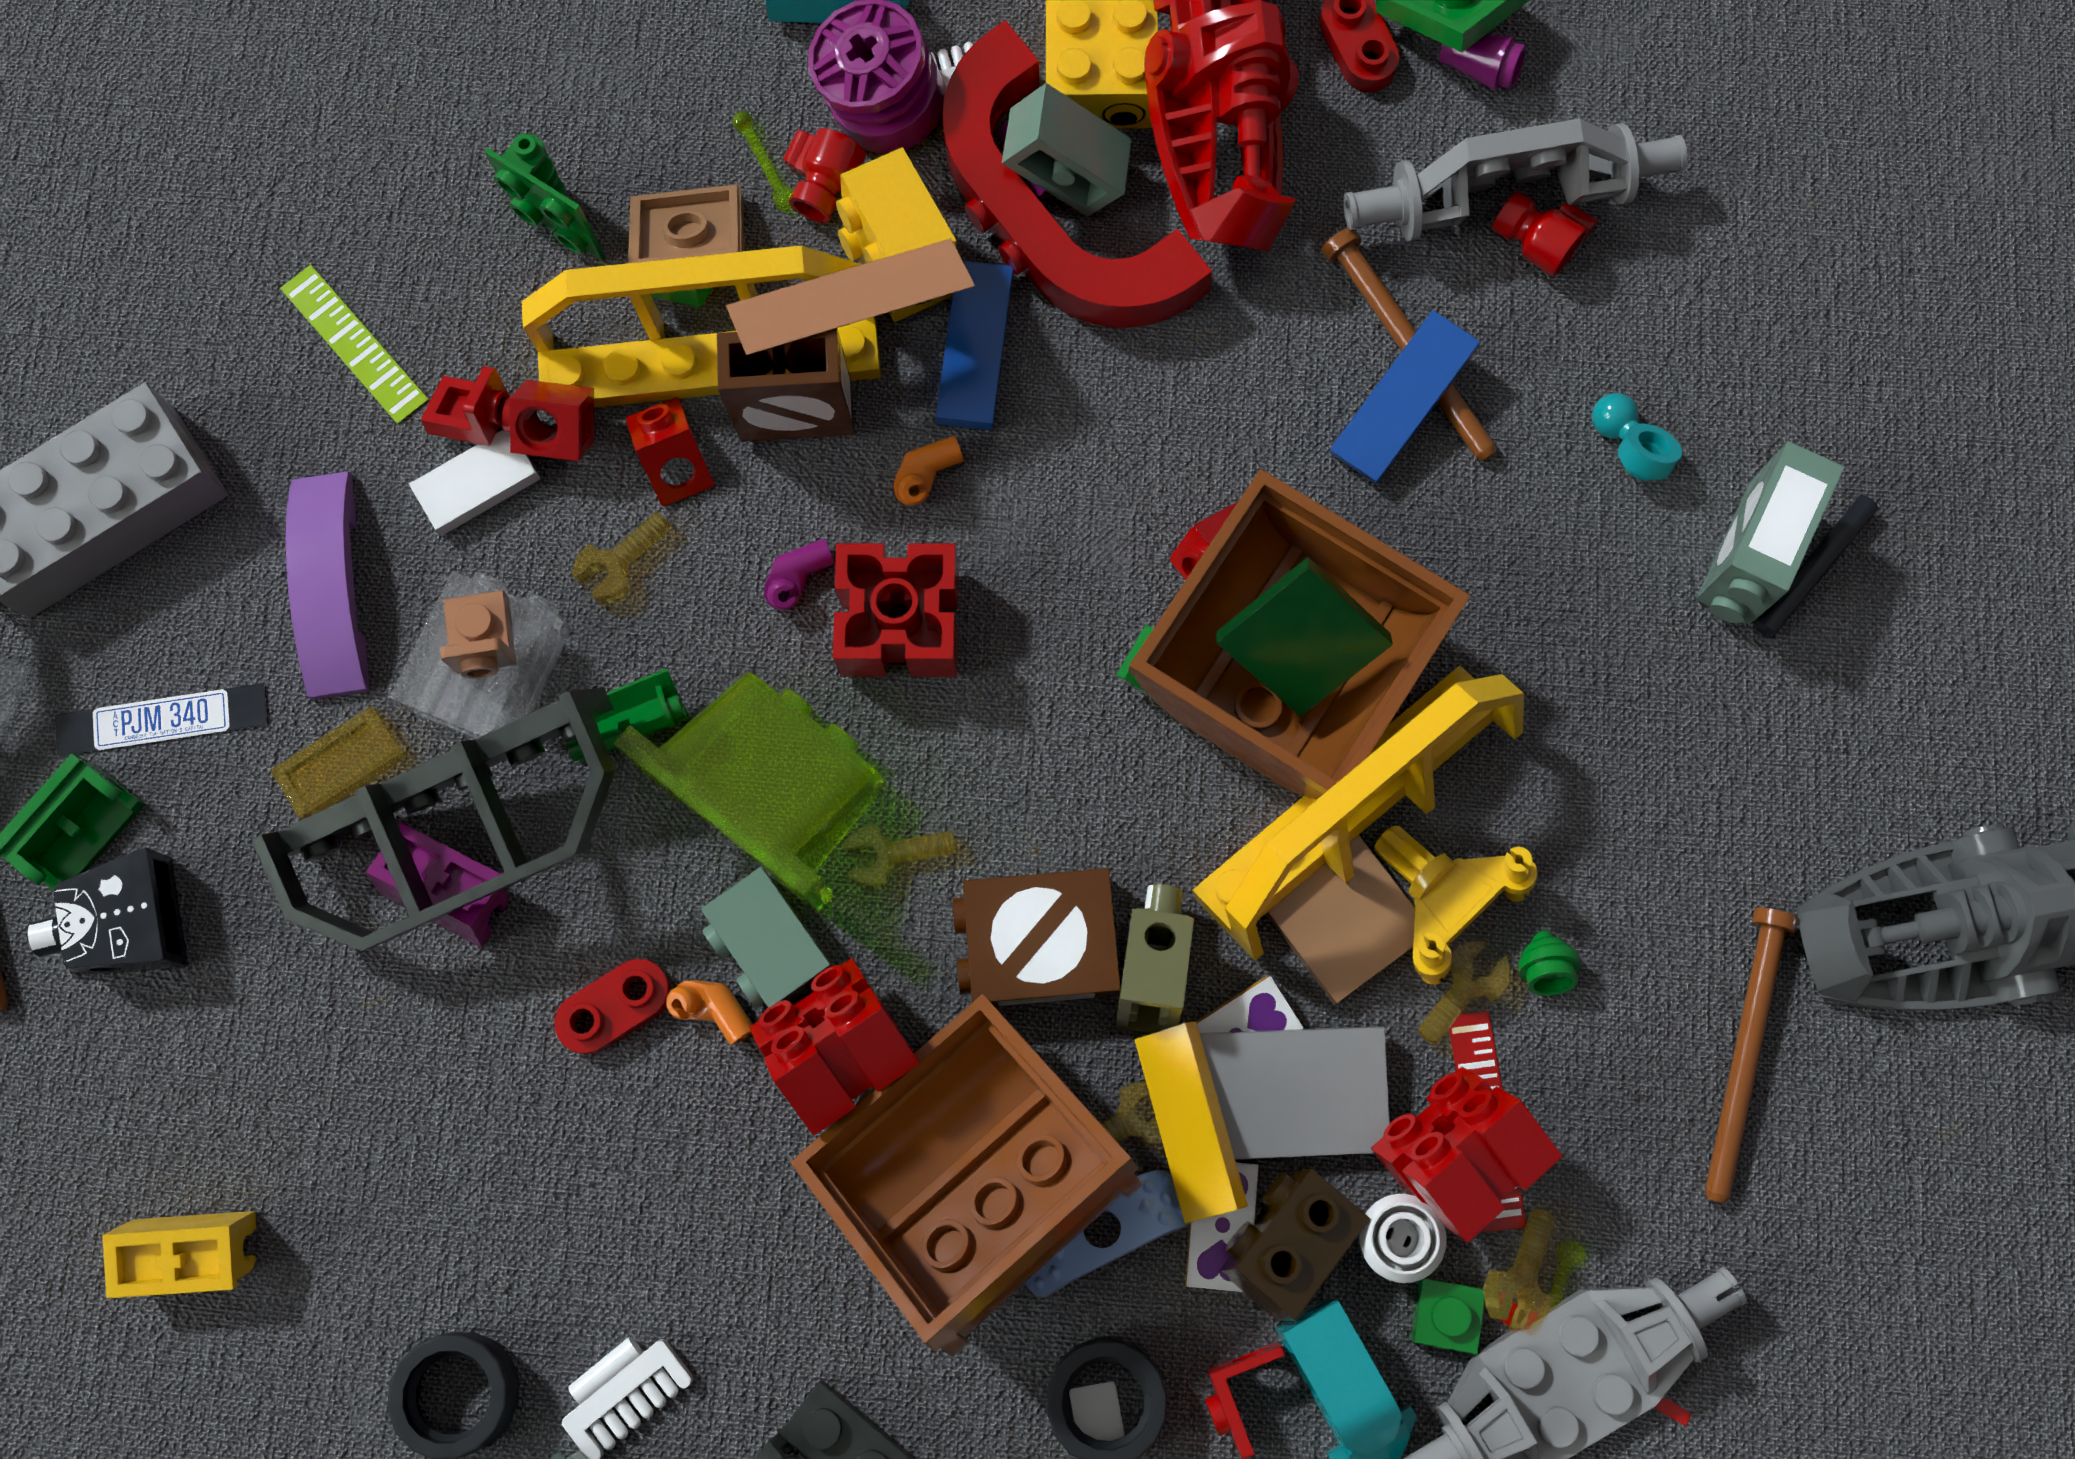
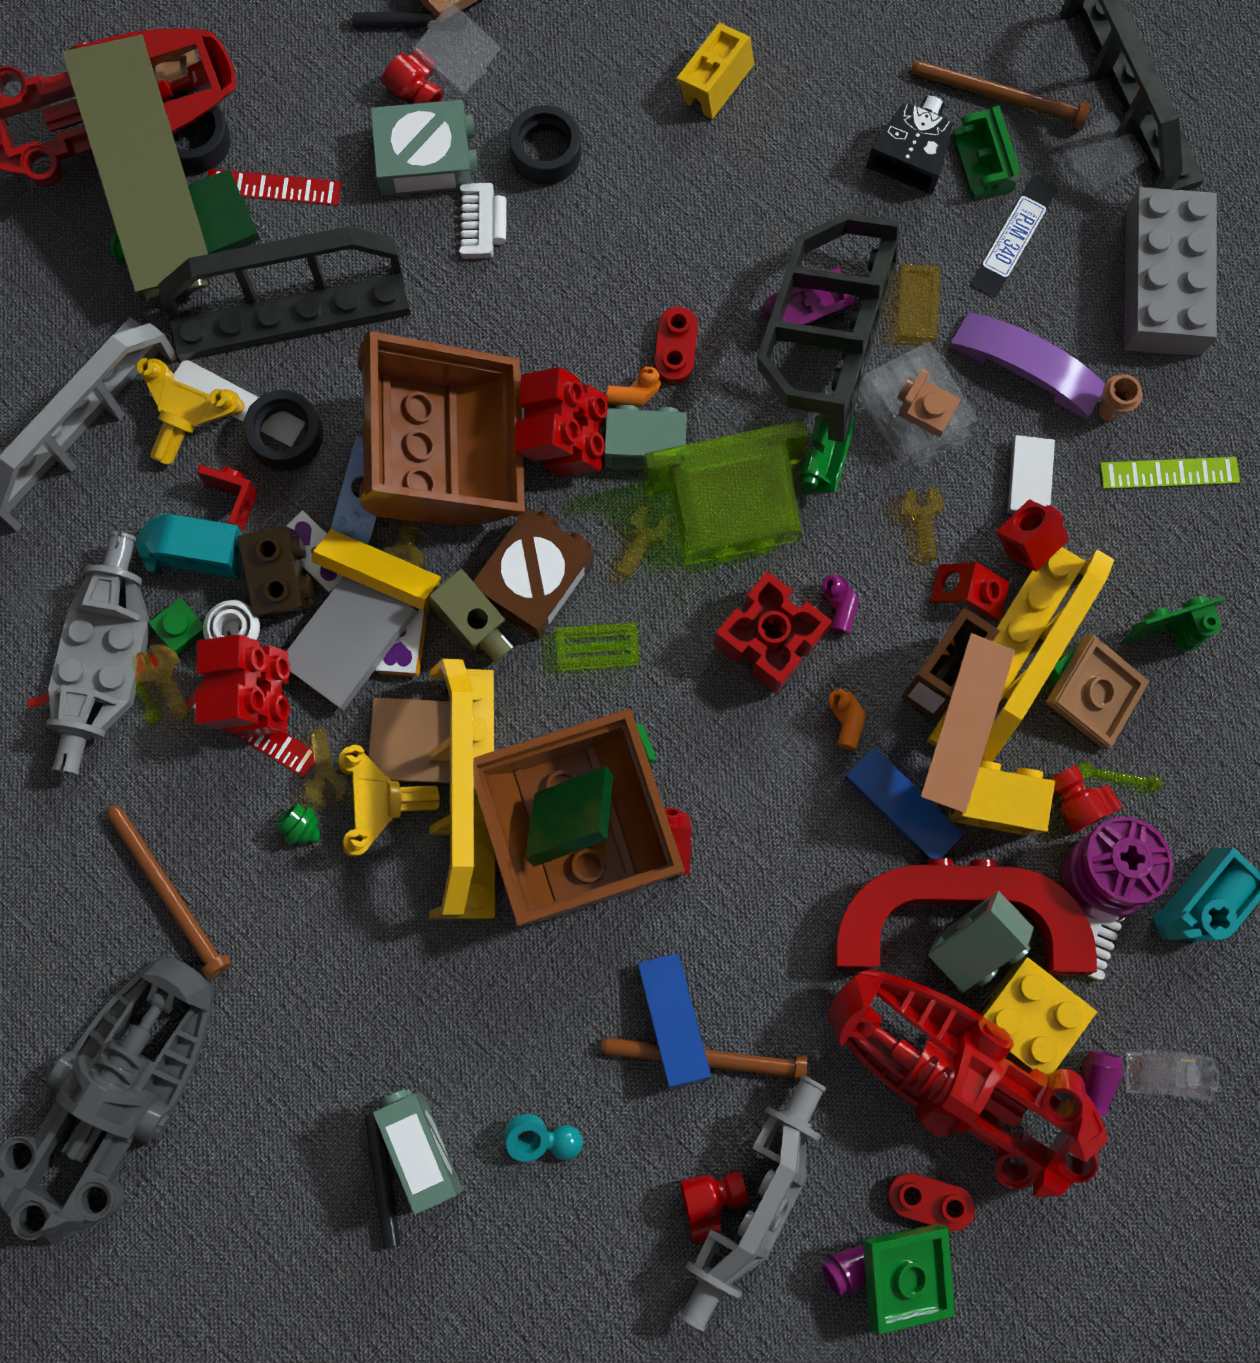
camera: 120 degrees right, 0 degrees up
(303, 440) = (1119, 397): none -> nougat cone
(467, 408) = (1077, 498): red bracket -> none
(1097, 839) = (597, 661): none -> clear neon green tile

